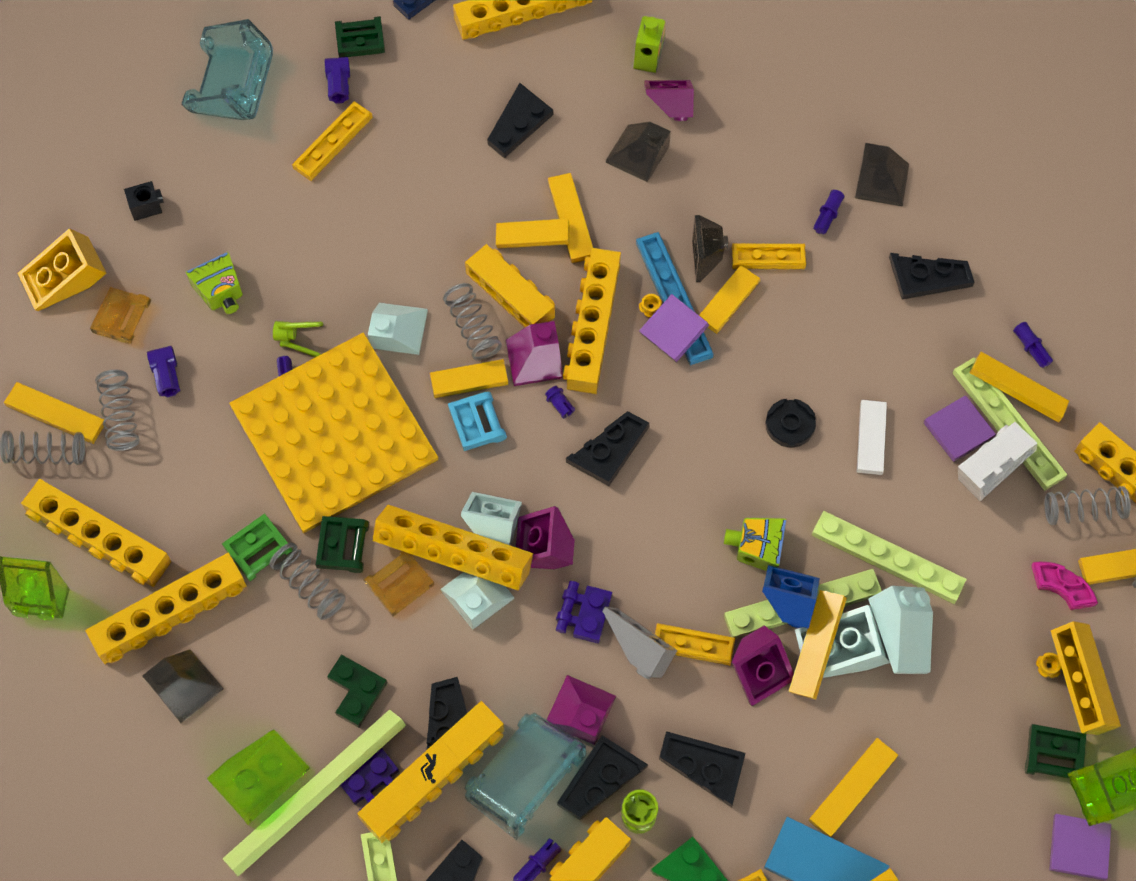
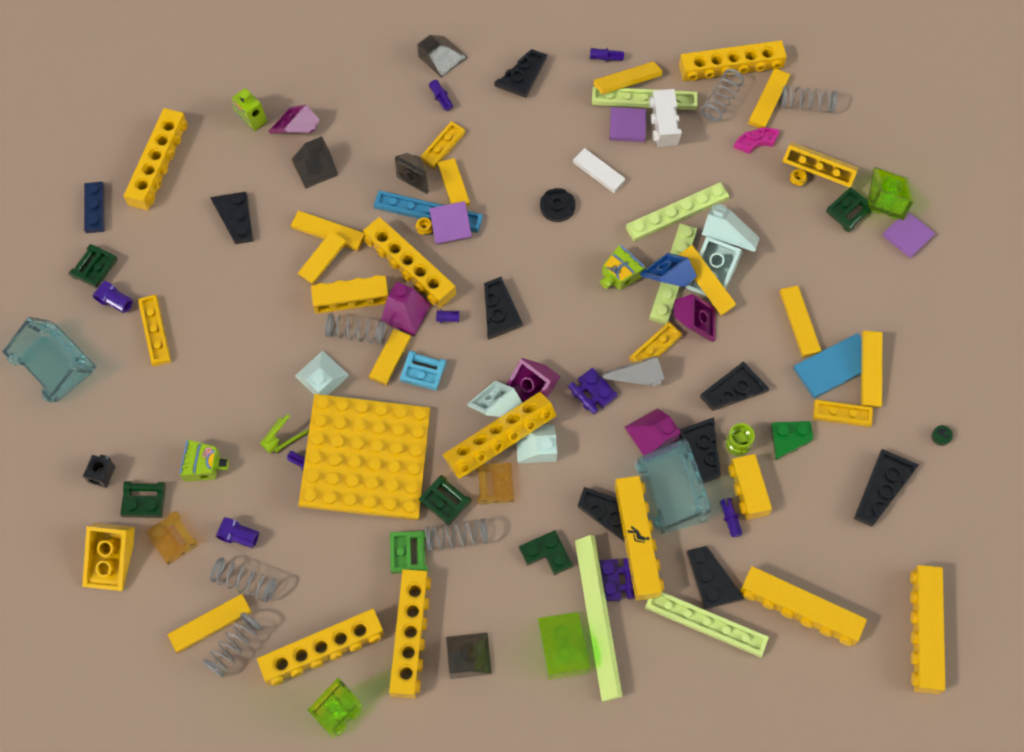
camera: 55 degrees left, 0 degrees up
(136, 265) = (143, 505): none -> dark green plate

